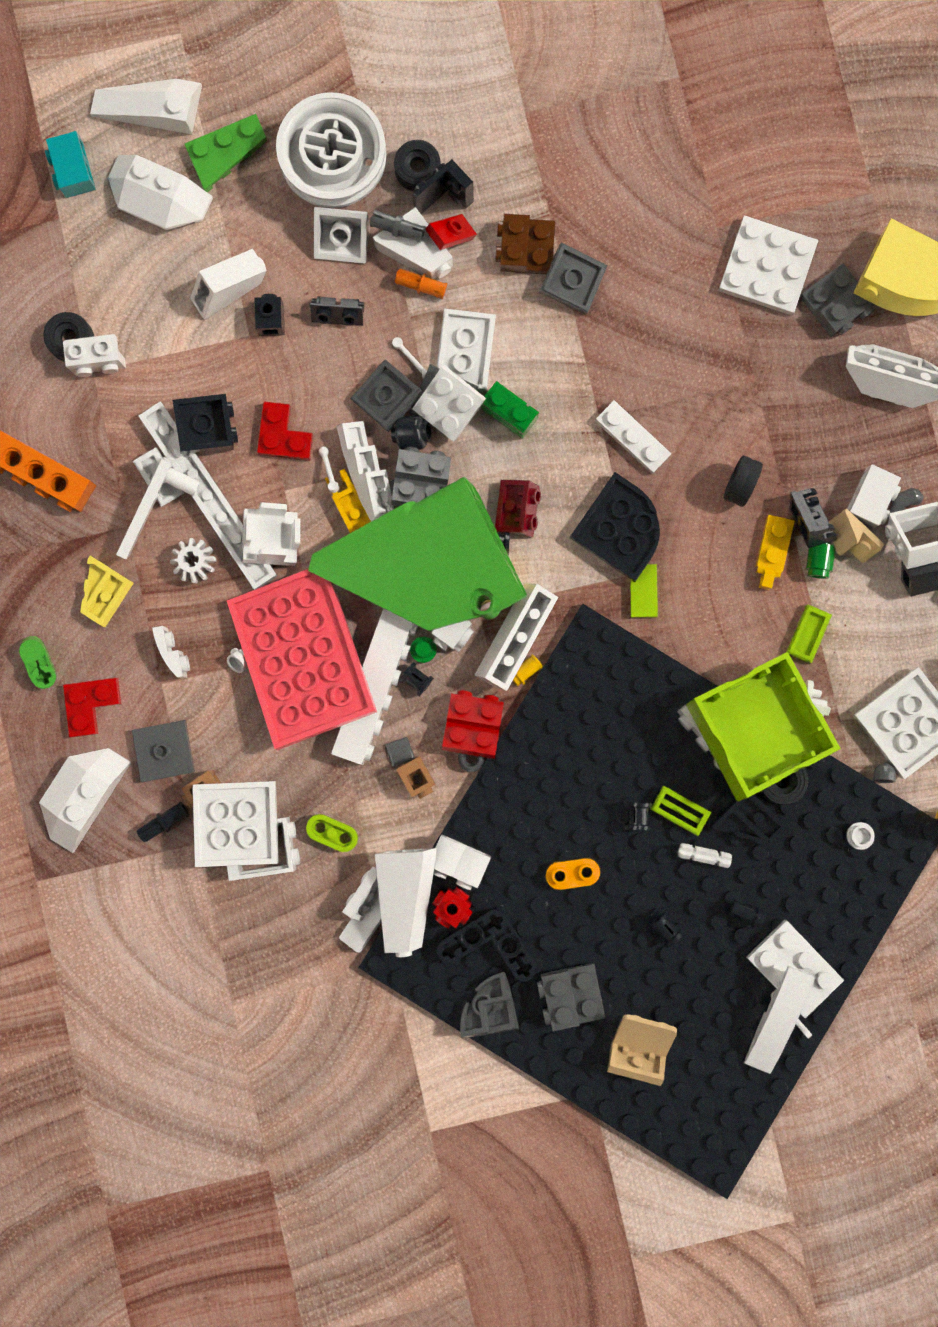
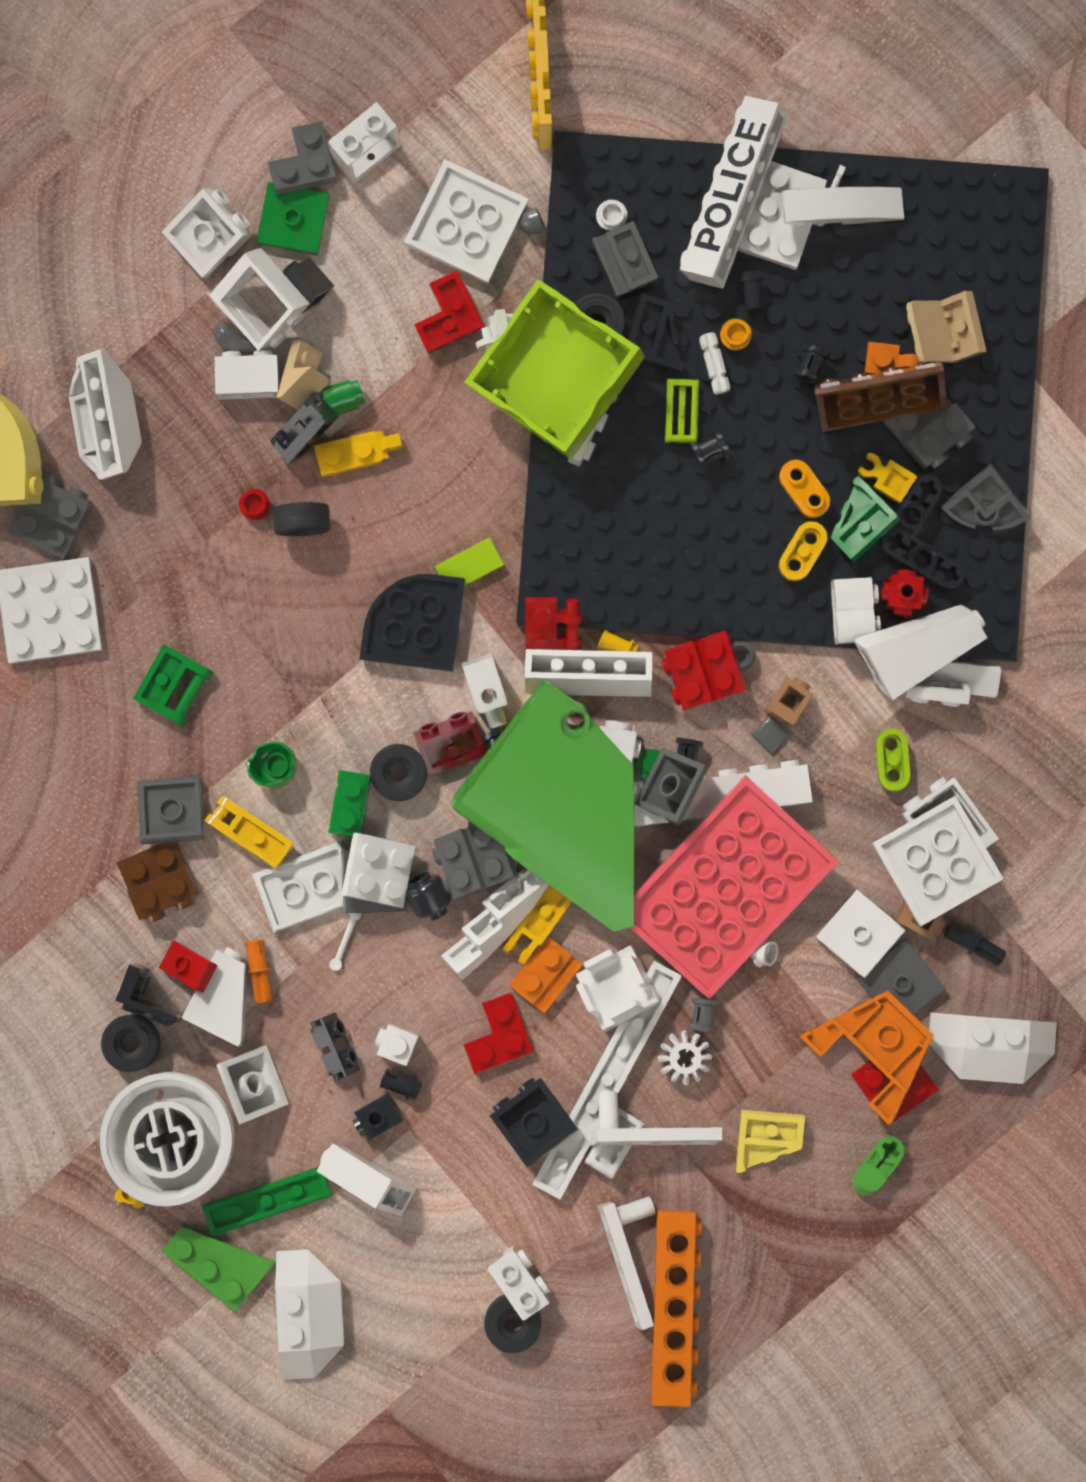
camera: 120 degrees left, 0 degrees up
(70, 164) = (322, 1424): teal brick -> none
(103, 447) = (613, 1220): none -> white piece
(126, 718) = (888, 1037): none -> orange wing
(155, 104) = (204, 1368): white wedge -> none
(175, 659) = (799, 1020): white slope -> none
(214, 739) = (860, 934): none -> white plate
(216, 591) = (704, 1015): none -> dark grey bush
(252, 204) = (266, 1201): none -> green tile
(284, 344) = (401, 1084): none -> black pin
(309, 491) = (545, 974): none -> orange plate
(314, 354) = (396, 1044): none -> white brick
(333, 485) = (529, 948): white hinge -> none
(386, 395) = (401, 944): dark grey plate -> none
(397, 226) = (214, 1024): dark grey pin -> none
(397, 651) = (671, 786): none -> dark grey slope
(522, 445) = (385, 760): none -> black tyre
(524, 905) = (862, 521): none -> wing
(525, 846) = (803, 552): none -> yellow plate
(526, 327) = (250, 833): none -> yellow plate
(545, 944) = (891, 480): none -> yellow plate
(555, 557) = (482, 675): none -> white torso
(568, 367) = (272, 765): none -> green hair
(570, 619) = (542, 621): none -> red plate
(614, 968) = (881, 396): none -> reddish brown slope
(633, 437) = (310, 660): white plate -> none
(640, 989) = (885, 356): none -> orange plate
(673, 322) = (164, 679): none -> green plate
(719, 883) = (735, 334): none -> light orange plate
(771, 454) = (254, 504): none -> red plate
(808, 633) = (425, 371): lime tile -> none
(821, 828) = (625, 259): none -> dark grey plate
(833, 940) = (733, 191): none -> white brick
(839, 678) = (457, 314): none -> red plate

